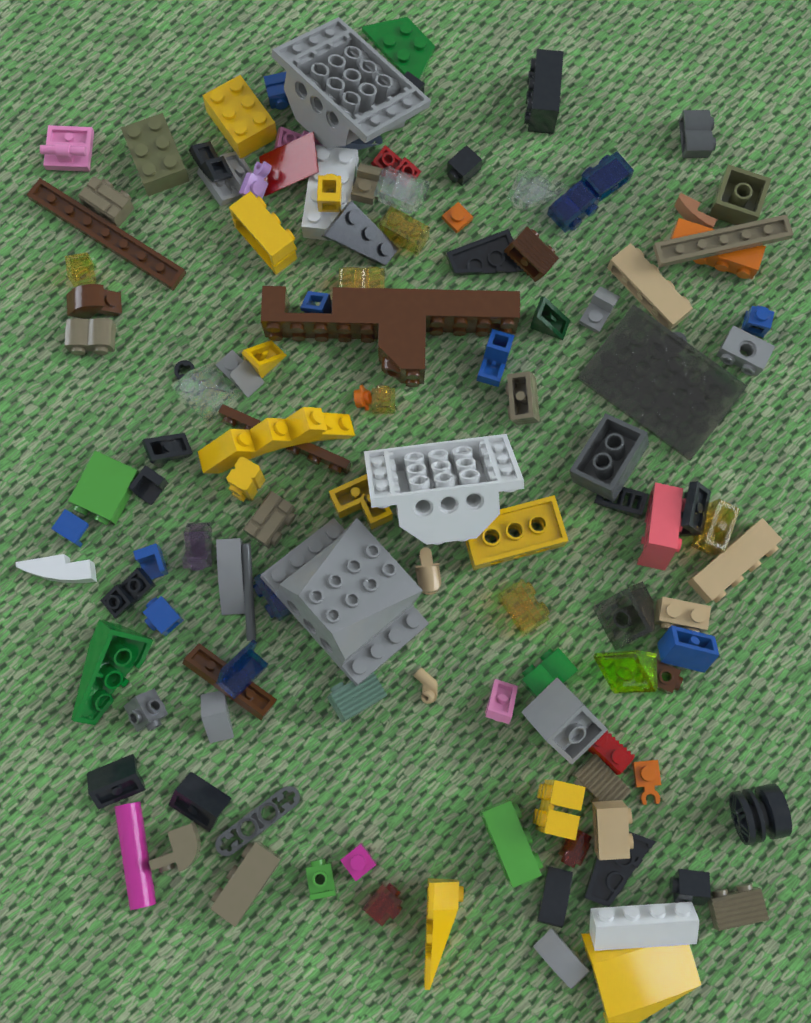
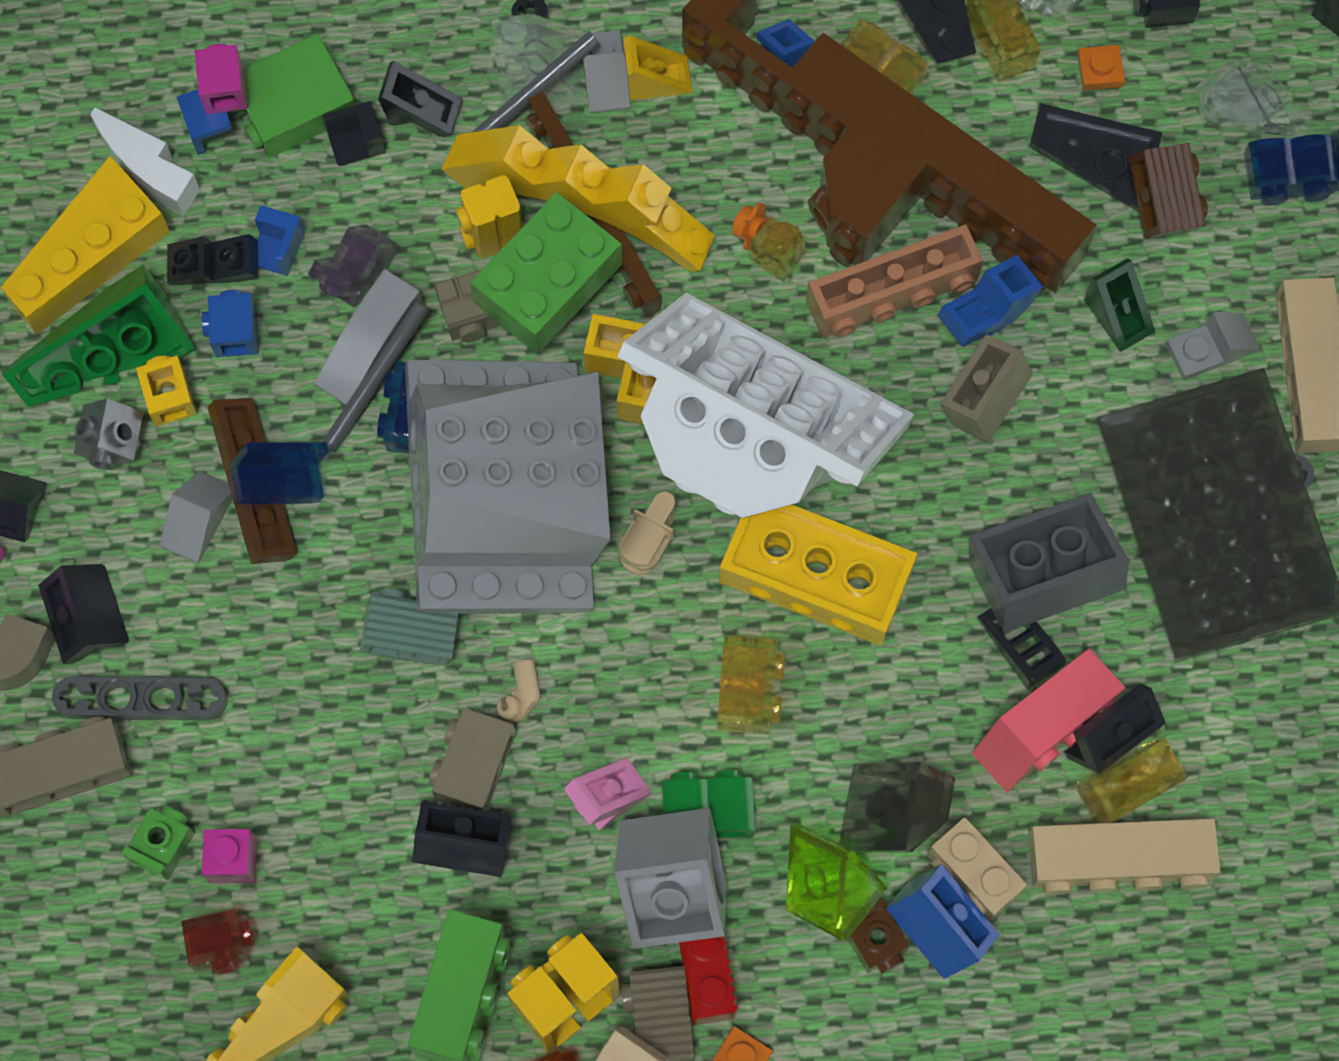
camera: 40 degrees right, 5 degrees down
(63, 630) = (85, 247): none -> yellow wedge
(67, 505) = (220, 78): none -> dark pink brick
(146, 665) = (168, 406): none -> yellow brick
(216, 404) = (540, 82): none -> dark grey bar
(293, 487) = (546, 273): none -> bright green brick
(432, 733) = (472, 760): none -> dark tan brick
(446, 378) = (893, 282): none -> nougat brick
(456, 772) = (461, 838): none -> black brick

